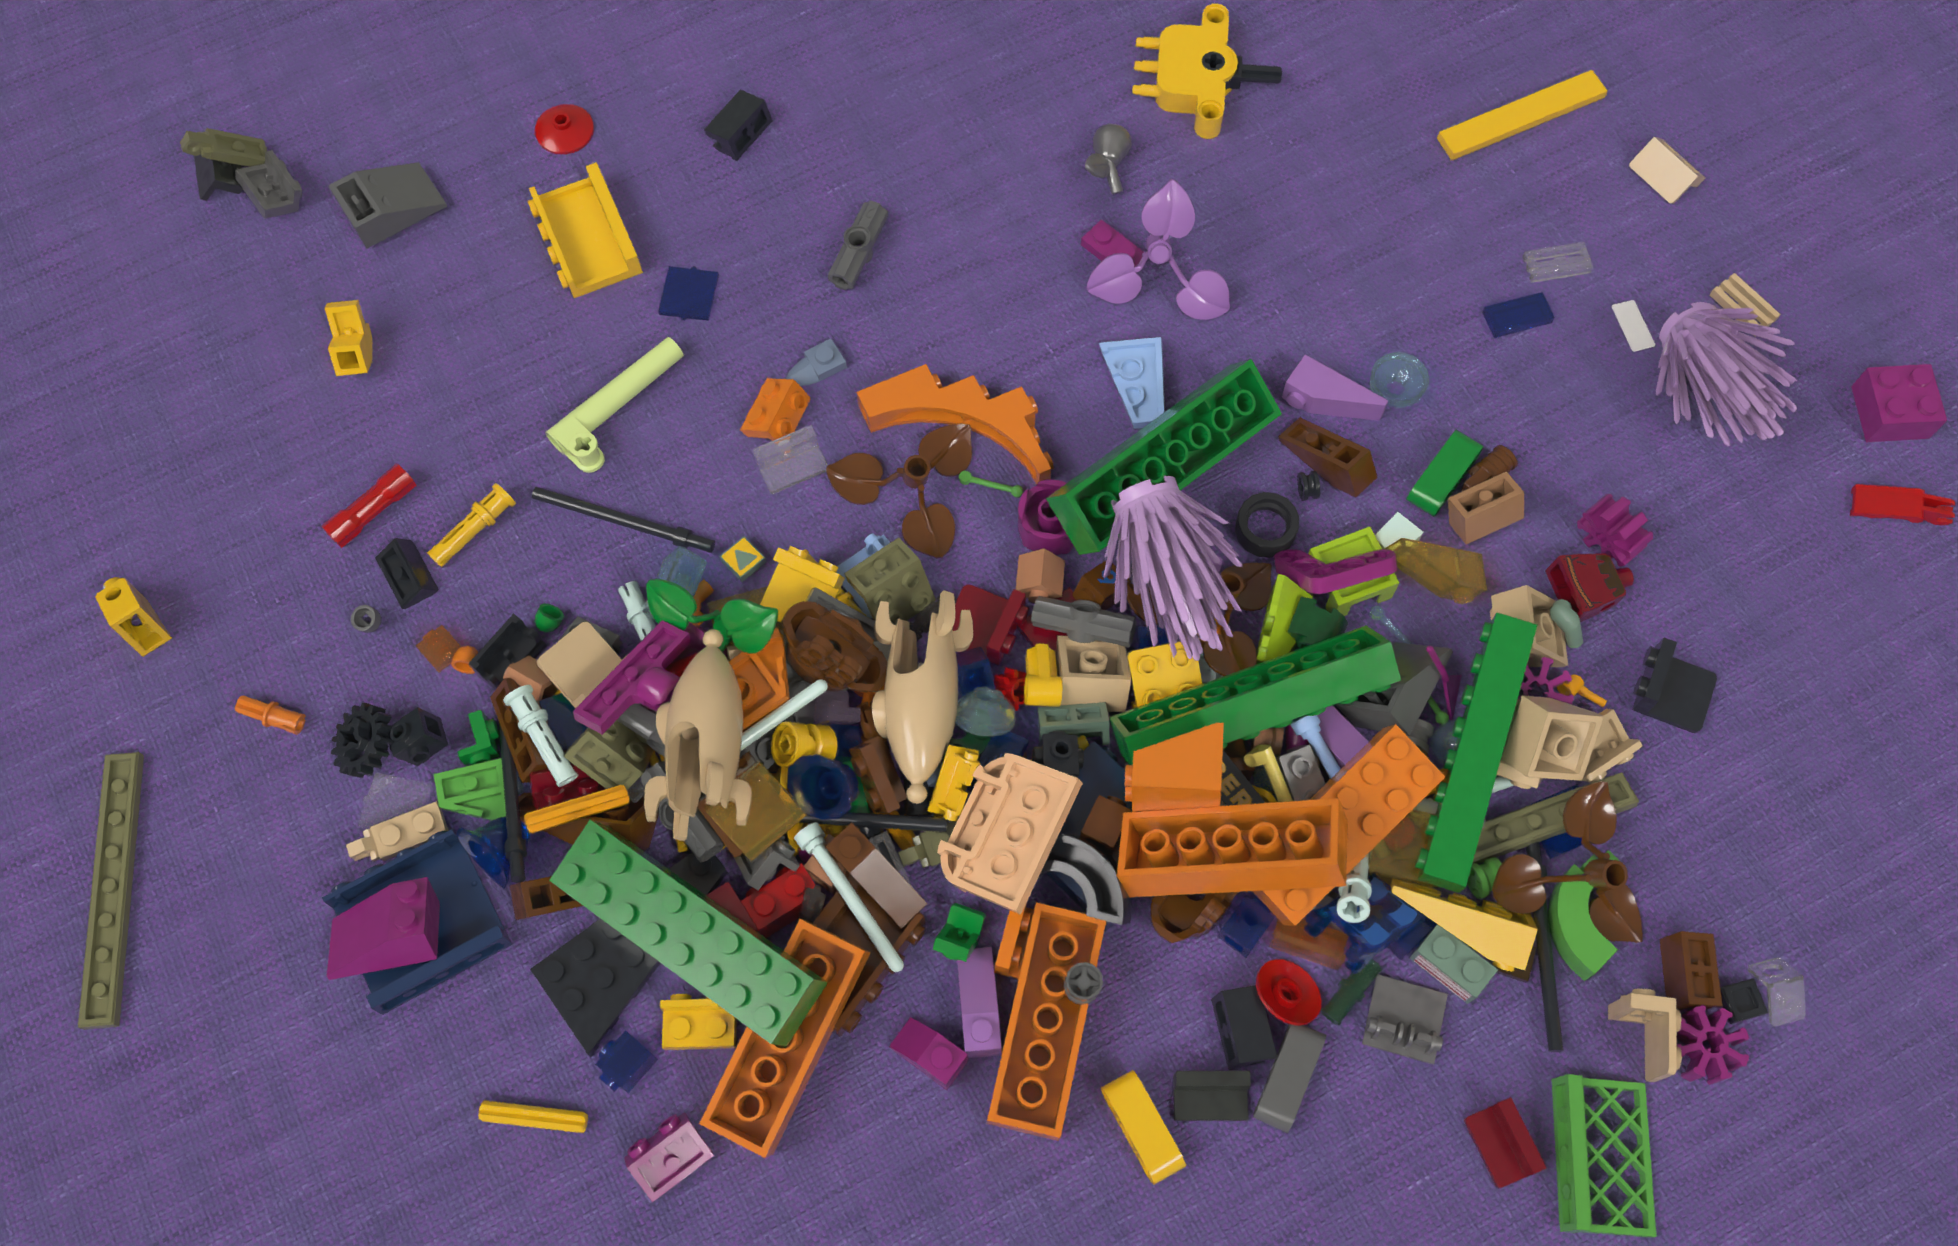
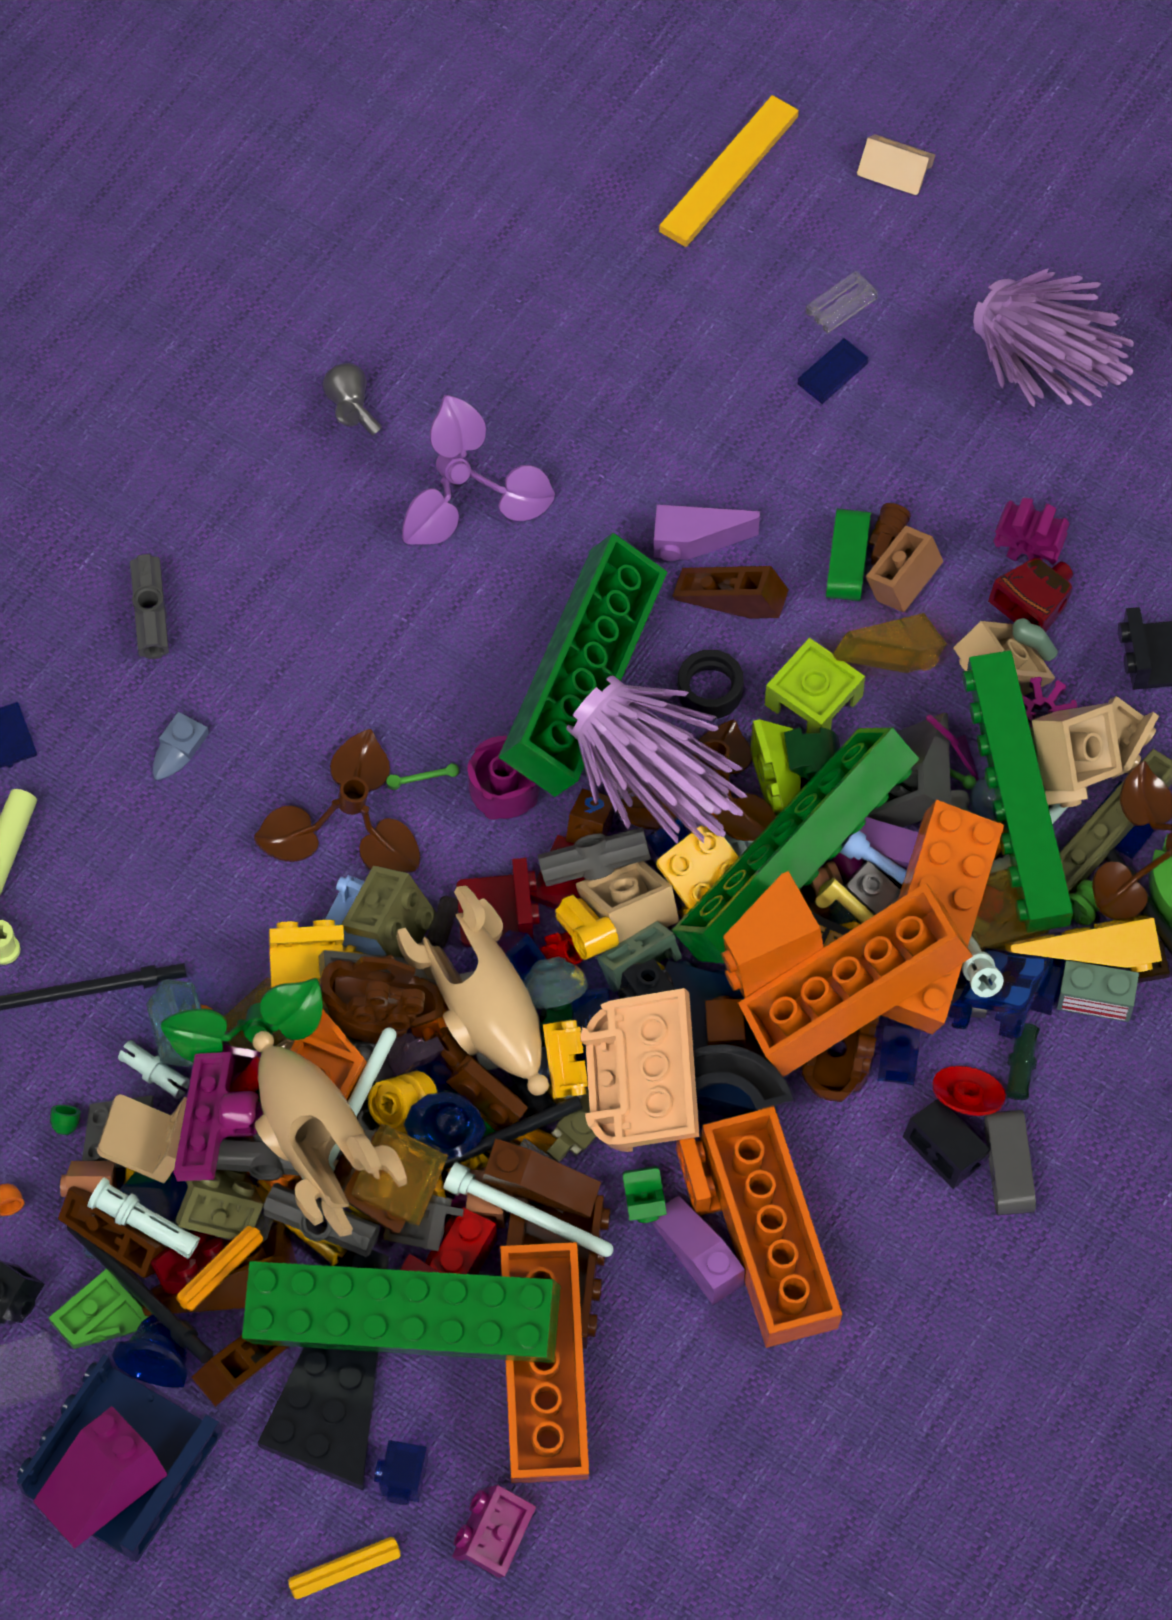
camera: 30 degrees left, 5 degrees down
(399, 833) = (47, 1392): tan hinge -> none
(485, 733) = (74, 1257): green bracket -> none
(506, 647) = (45, 1164): black hinge -> none
(696, 1024) = (448, 1403): yellow bracket -> none
(743, 559) = (222, 967): tile -> none
(776, 409) = (166, 809): orange bracket -> none
(790, 459) = (211, 850): clear panel -> none
(812, 904) = (496, 1236): clear smoke axle -> none
(921, 398) = (399, 708): orange arch -> none
(930, 1052) = (679, 1313): magenta slope -> none
(1040, 575) = (525, 835): nougat brick -> none
(1083, 976) = (788, 1161): dark grey wheel -> none
(1105, 241) = (400, 487): magenta plate -> none
(1138, 377) = (507, 604): light blue wing -> none
(1143, 1127) = (906, 1274): yellow beam -> none
(1198, 70) = (388, 270): yellow piece -> none
(1211, 1095) = (950, 1215): pearl dark grey panel -> none
(1308, 485) = (728, 628): black bush -> none
(1324, 578) = (795, 705): magenta beam -> none
(1324, 949) = (955, 1044): clear orange panel -> none
(1377, 613) = (857, 716): clear light blue hinge -> none
(1397, 528) = (834, 630): light aqua panel -> none
(1403, 369) = (759, 475): clear light blue piece -> none
(1405, 1019) = (1082, 1062): flat silver hinge -> none
(1577, 686) = (1073, 692): light orange hand -> none
(1633, 325) = (944, 330): white sticker -> none
(1746, 298) = (1037, 257): tan tile -> none

